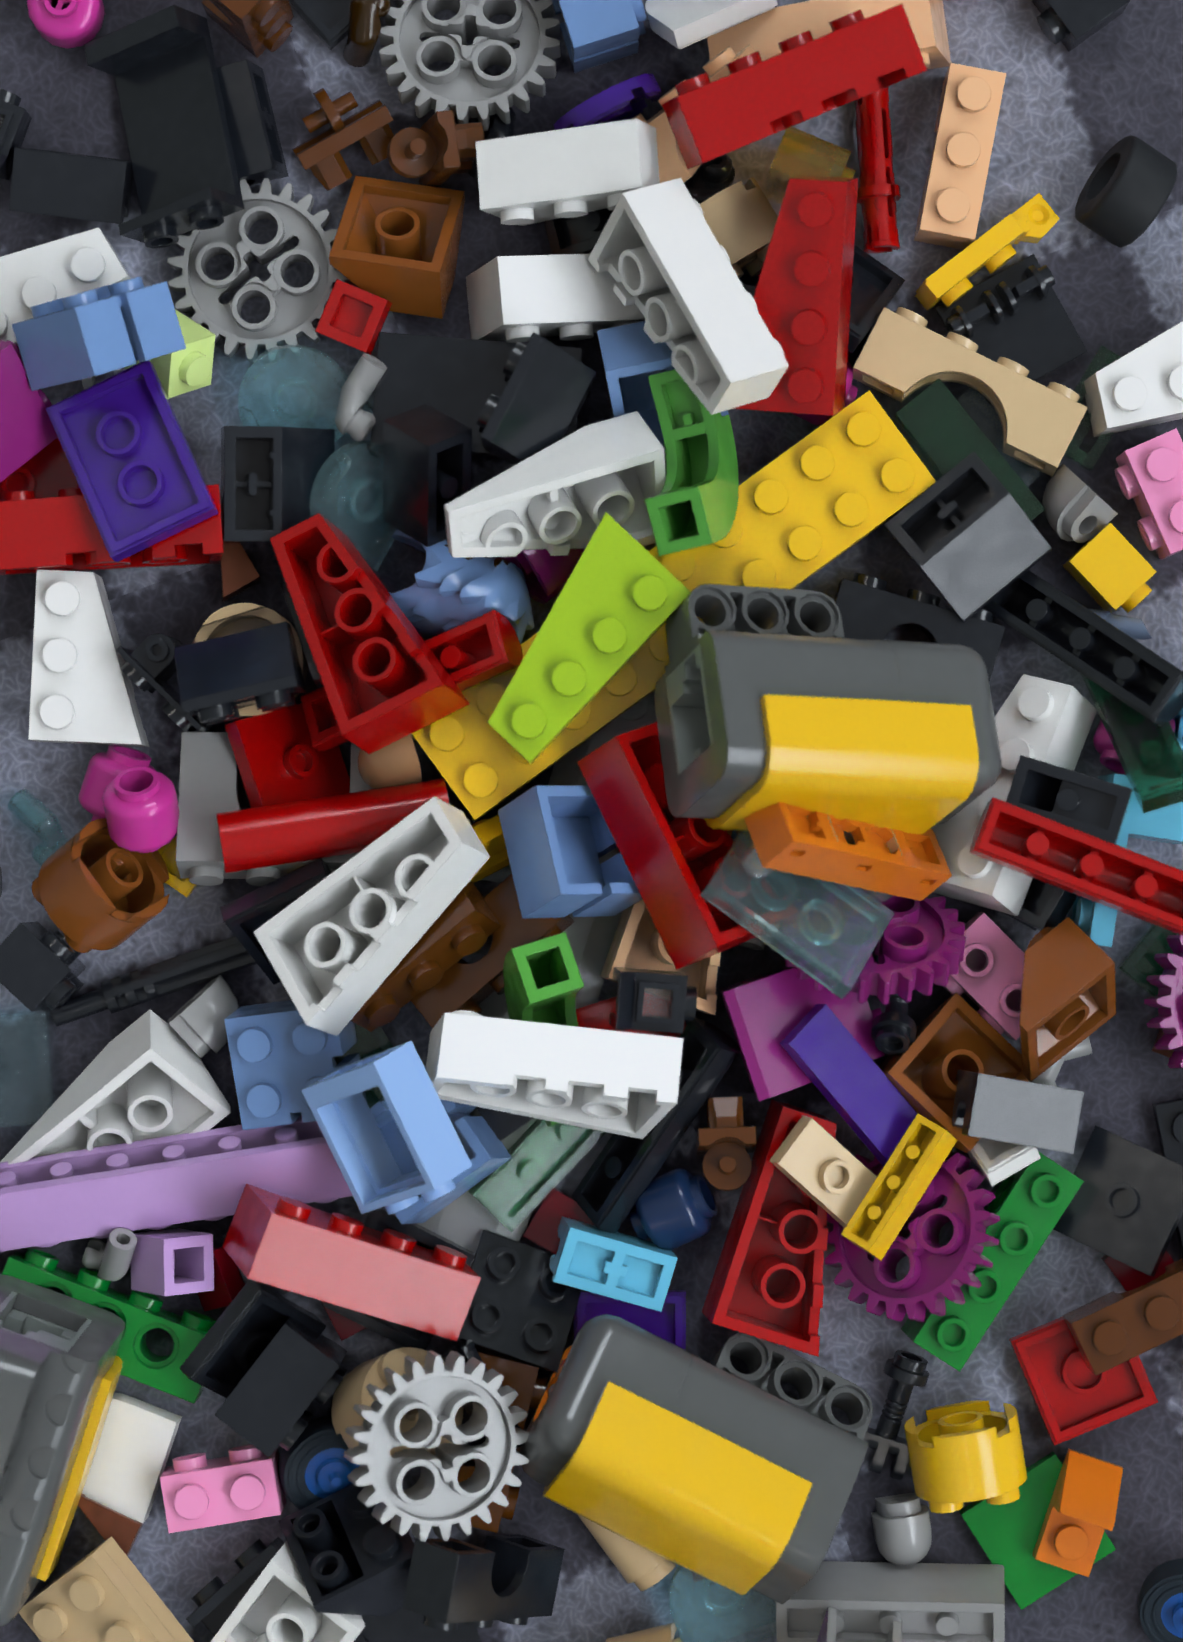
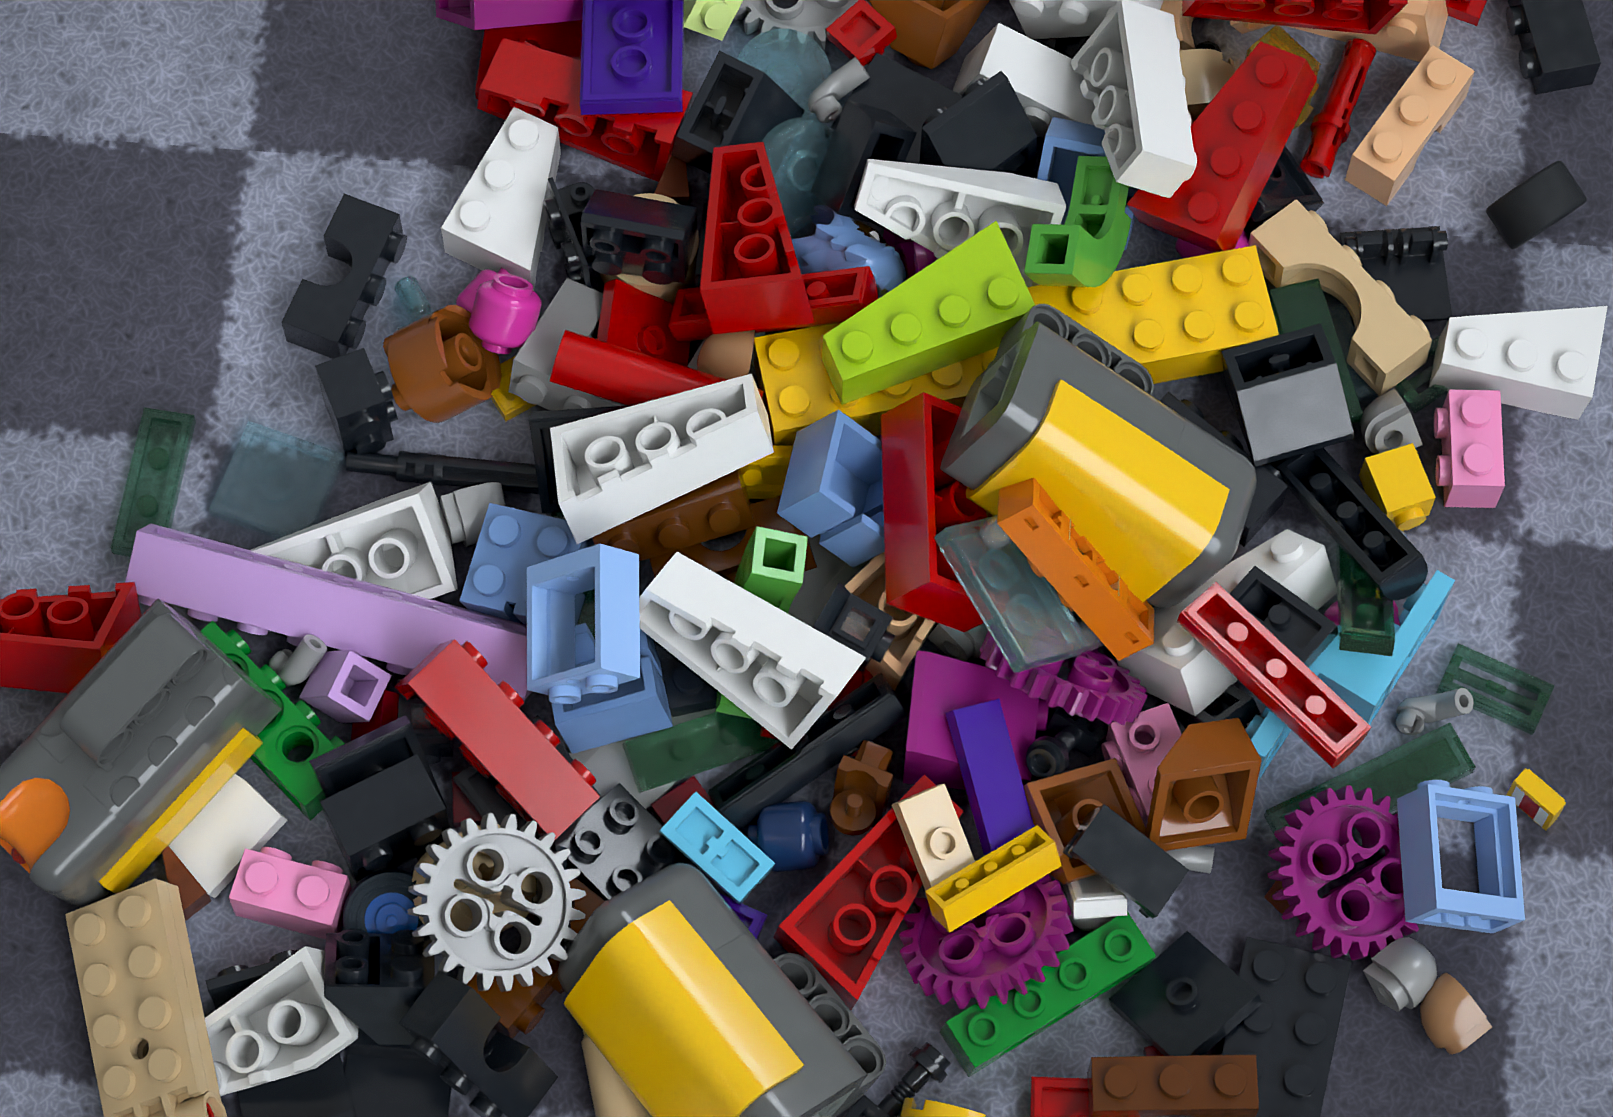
camera: 25 degrees right, 20 degrees down
(989, 251) = (1398, 203): yellow hinge -> none

